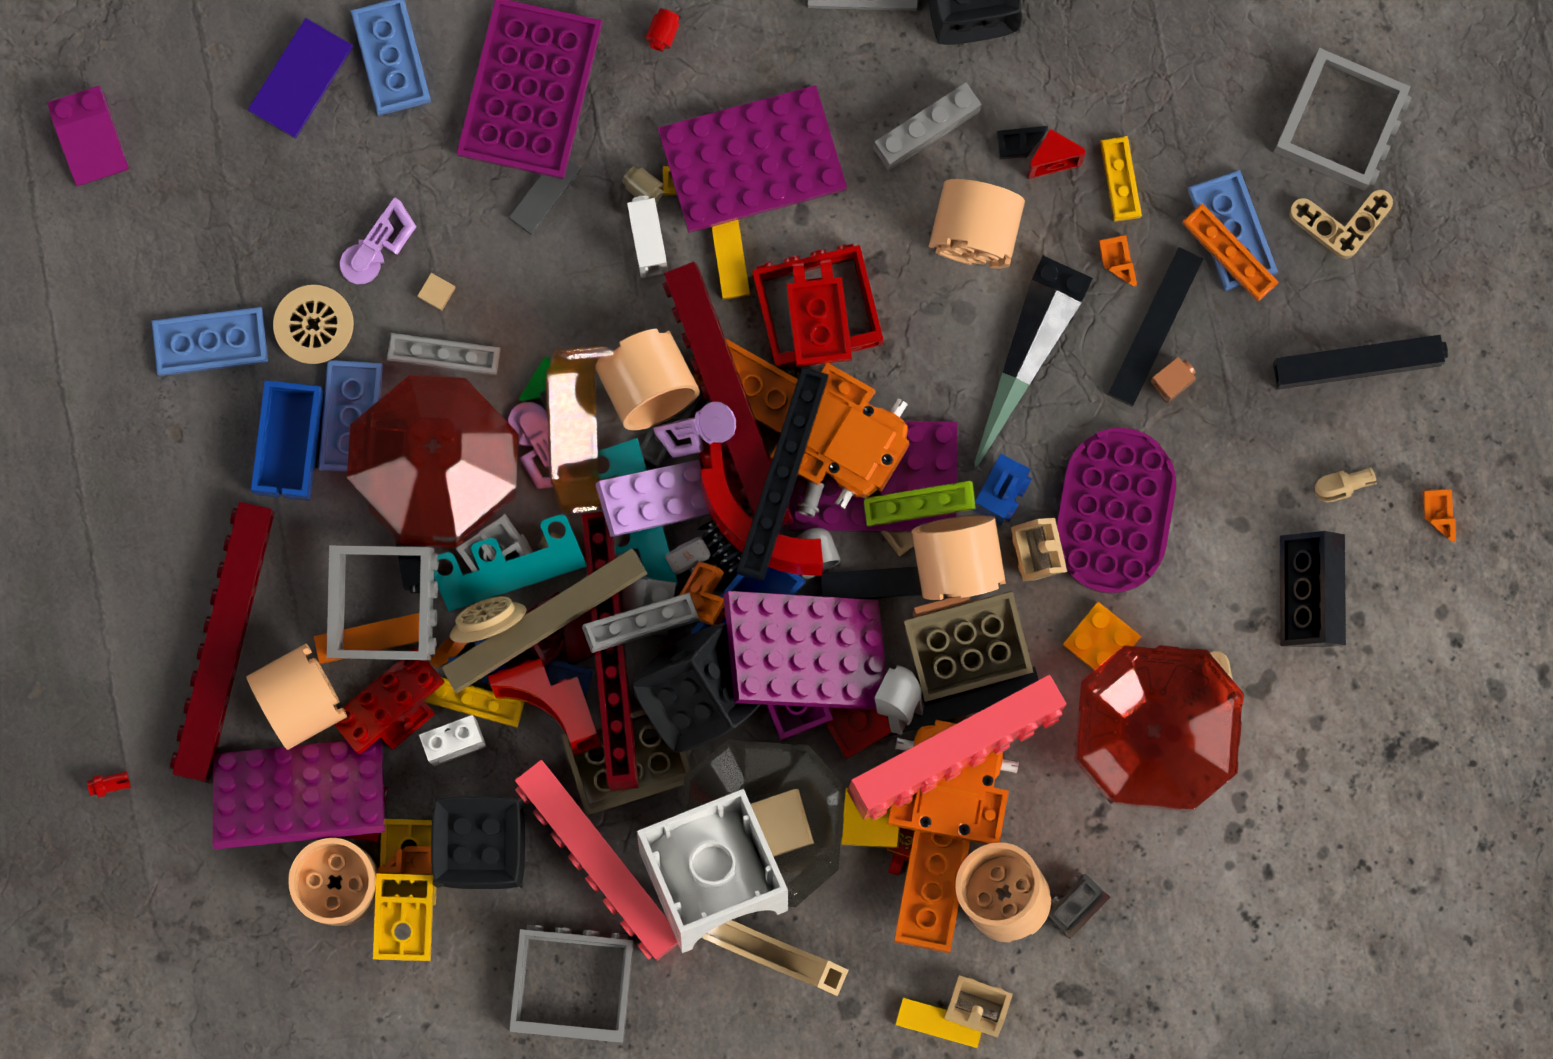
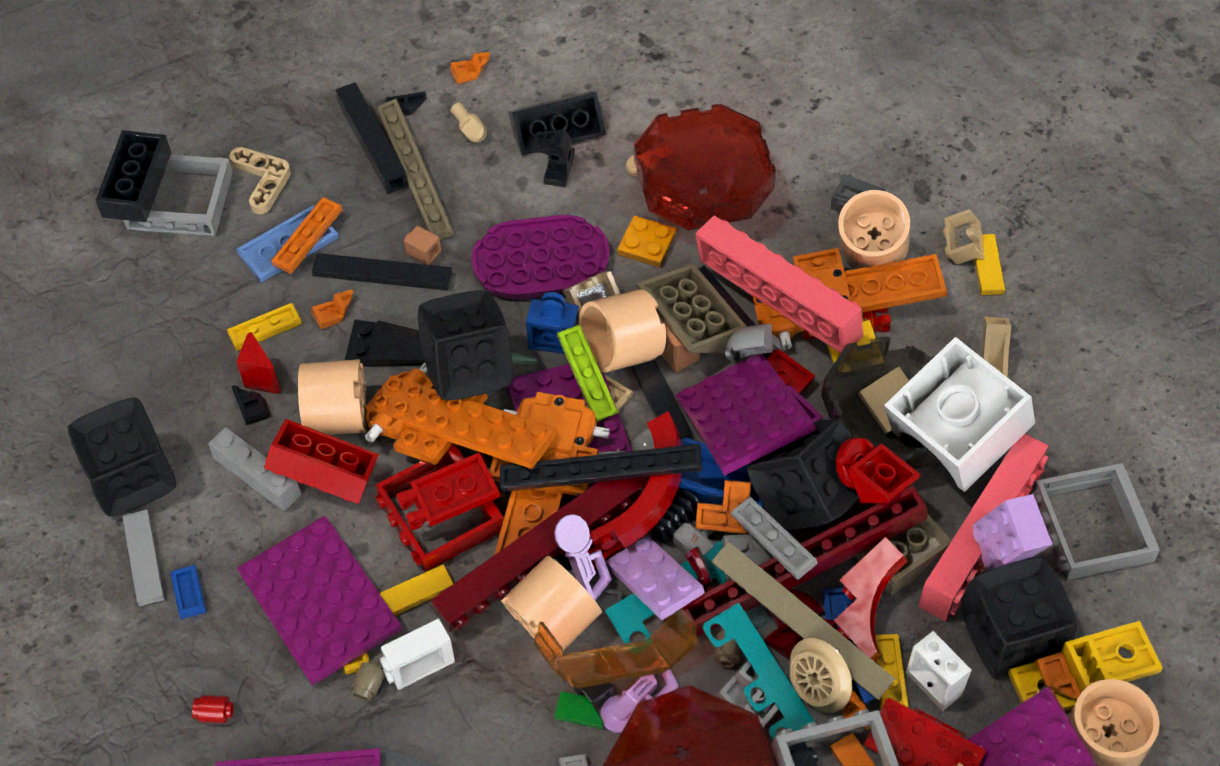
camera: 105 degrees left, 25 degrees down
(546, 853) = (1011, 532): none -> lavender brick
(645, 544) = (700, 567): none -> dark red brick
(661, 754) = (881, 476): none -> red slope
(686, 734) = (848, 454): none -> red tile
(807, 32) = (188, 592): none -> blue tile
(900, 193) = (321, 461): none -> red brick
(920, 333) = (428, 425): none -> orange piece
(982, 374) = (465, 344): none -> black piece
(1252, 569) = (559, 149): none -> black tile
(1294, 401) = (415, 169): none -> dark tan tile
(1360, 67) = (133, 176): none -> black brick
(1405, 417) = (409, 102): none -> black tile

